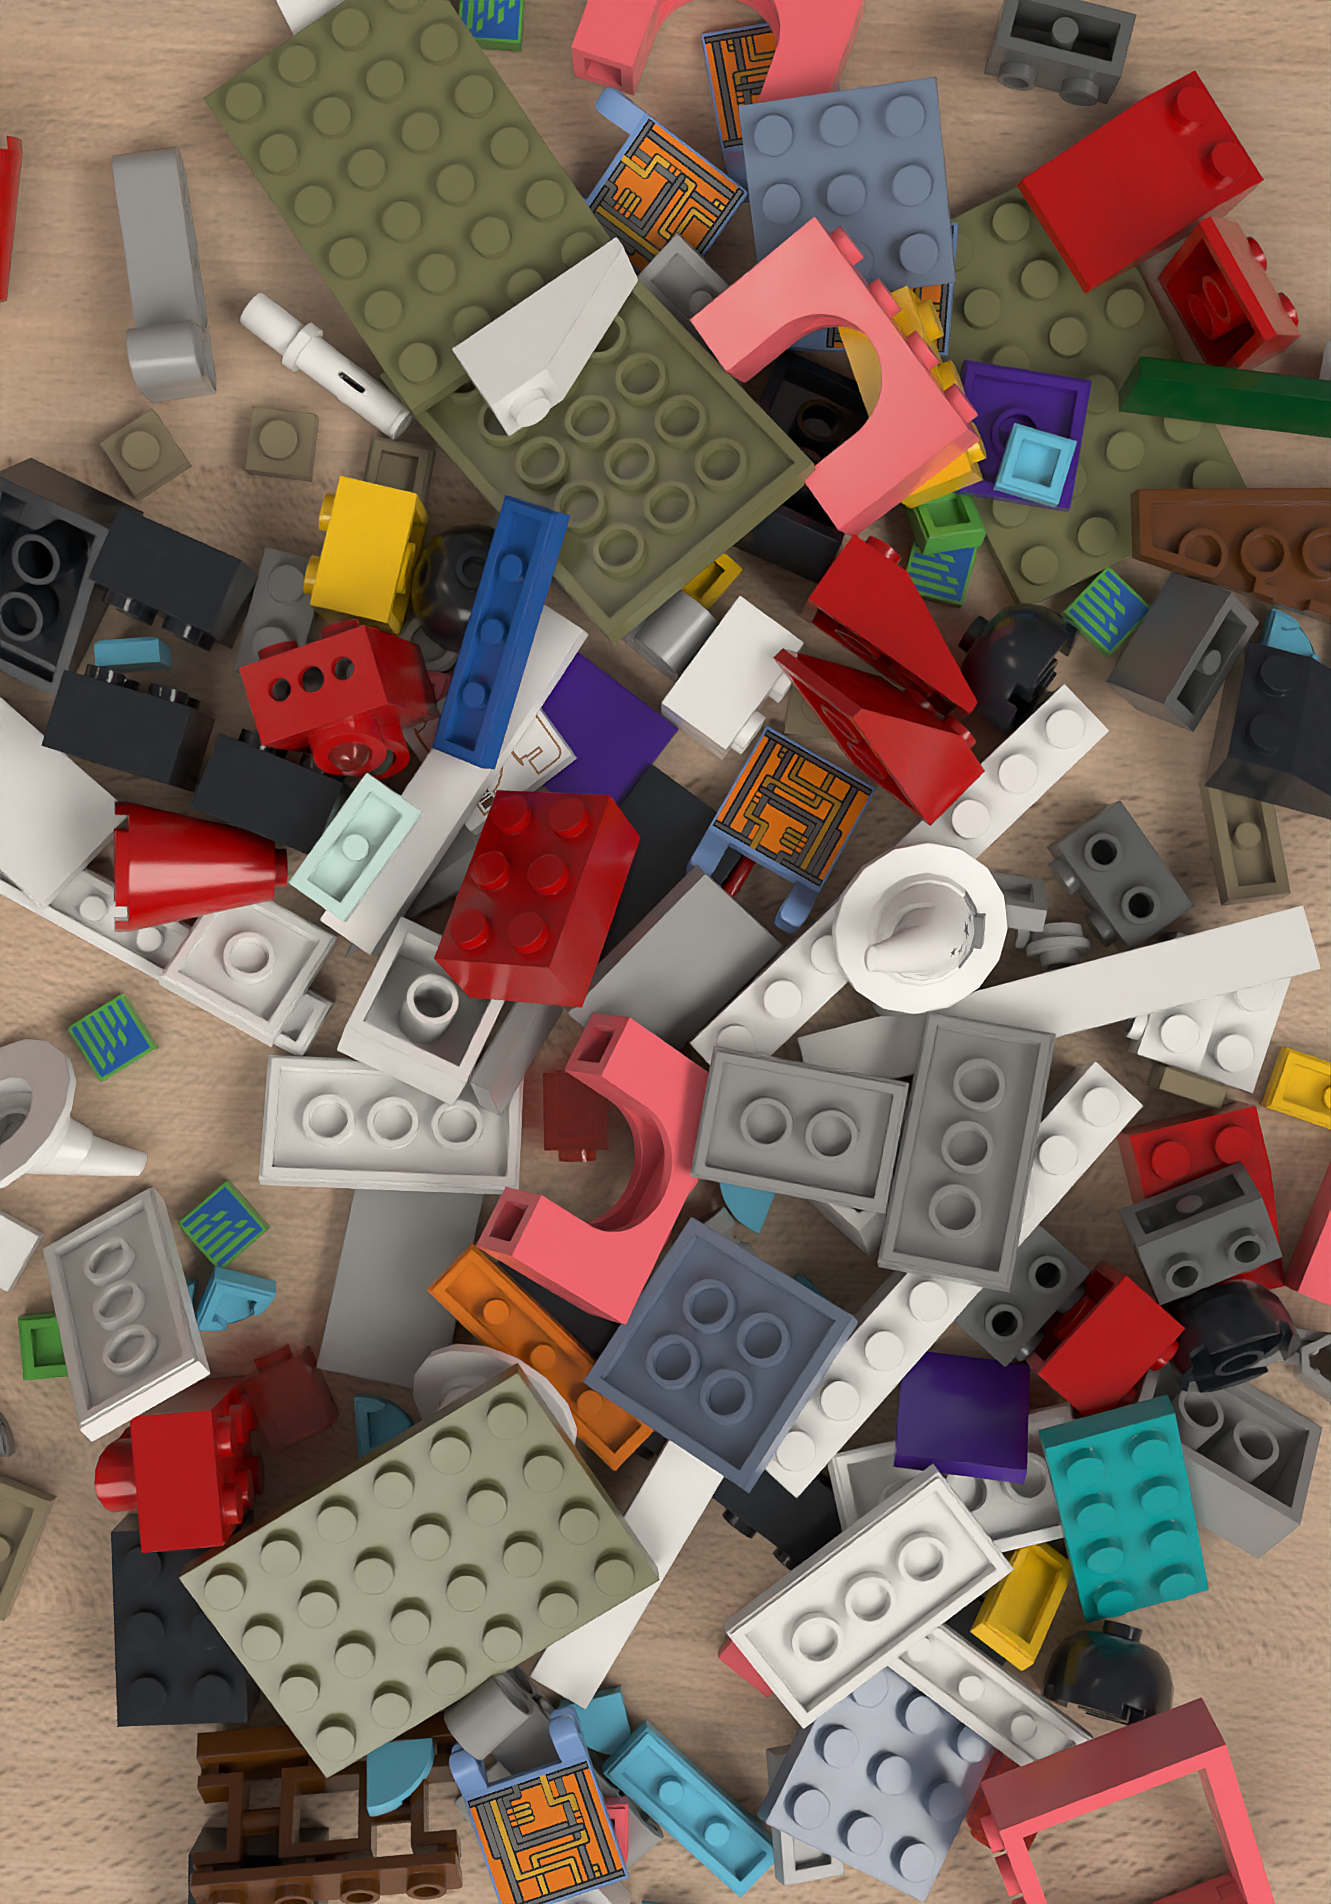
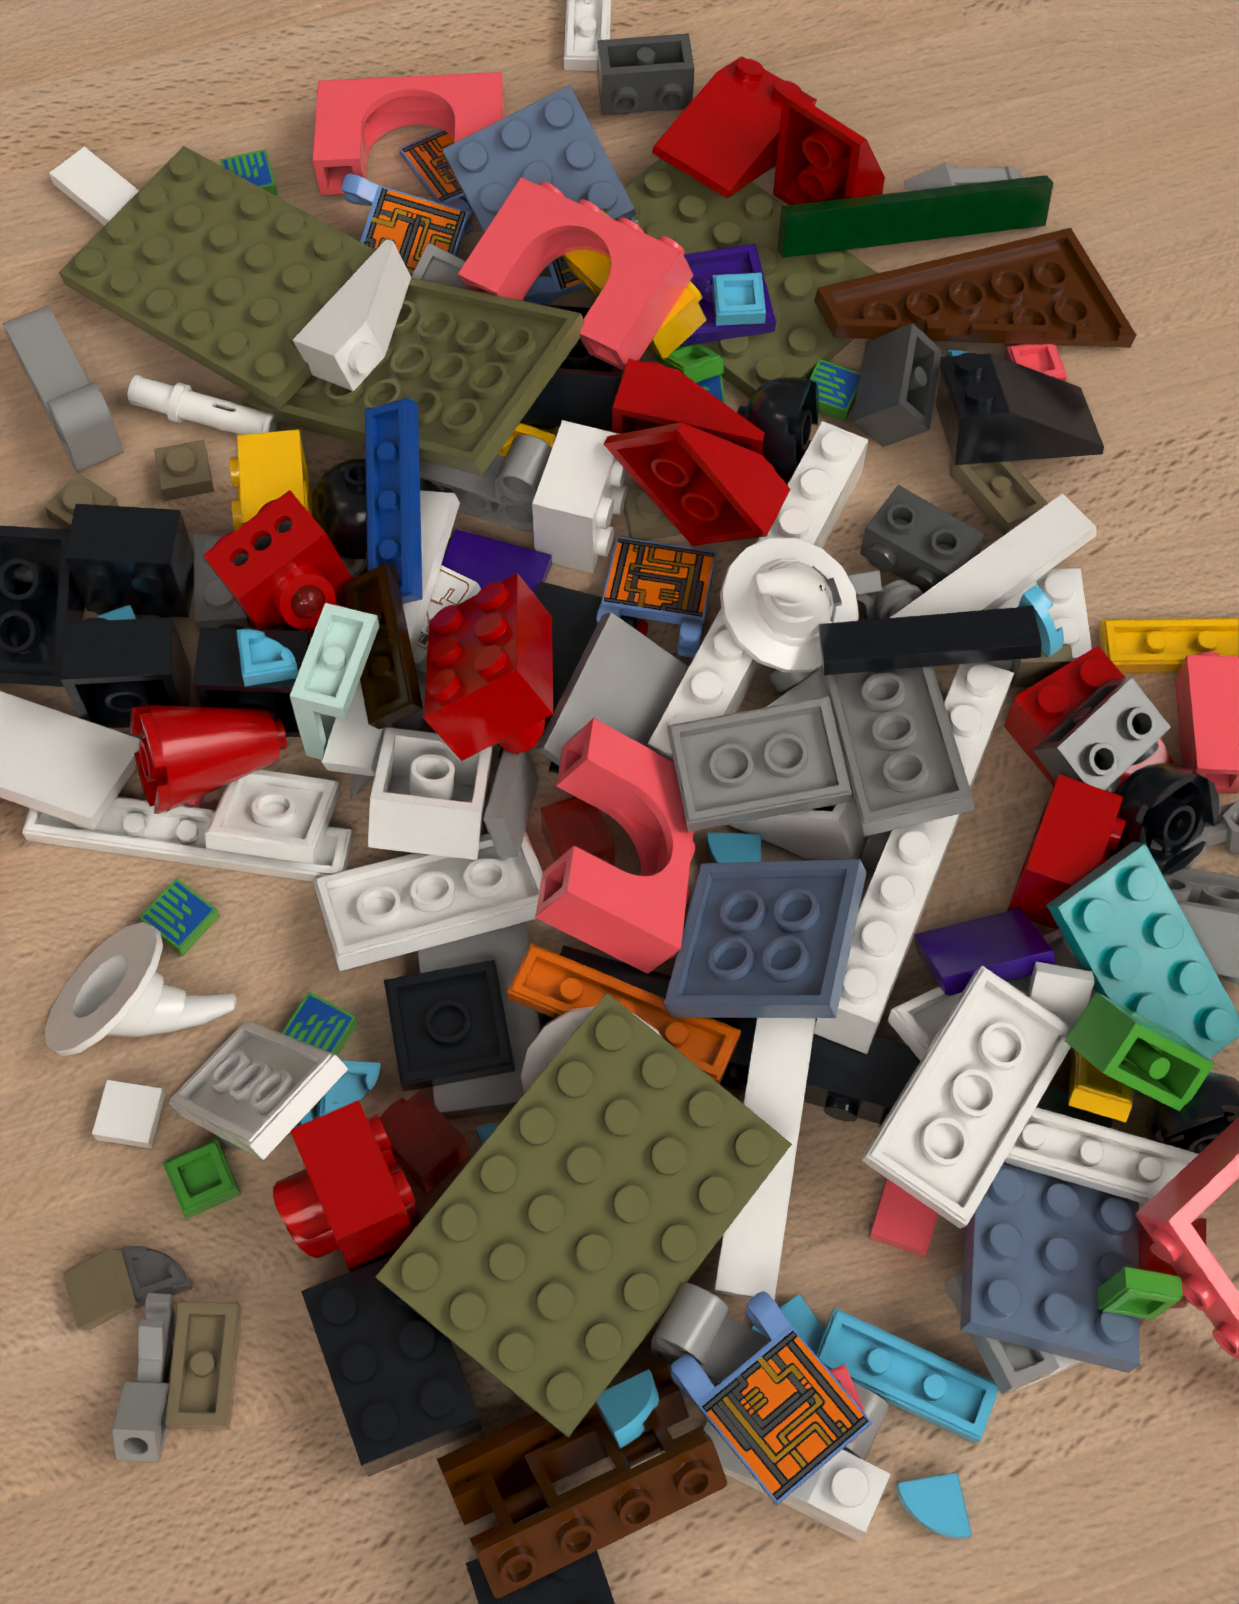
camera: 20 degrees left, 25 degrees down
(279, 807) = (264, 659): none -> medium azure tile
(360, 1281) = (448, 1025): none -> black tile
(434, 782) = (389, 674): none -> dark brown tile
(950, 1853) = (1139, 1293): none -> bright green tile
(1013, 1514) = (1061, 990): none -> white tile
(1042, 1281) = (981, 854): dark grey brick -> none
(1057, 1048) = (929, 640): none -> black tile
(1062, 1621) = (1139, 1052): none -> bright green brick
(1198, 1050) = (1051, 638): none -> medium azure tile

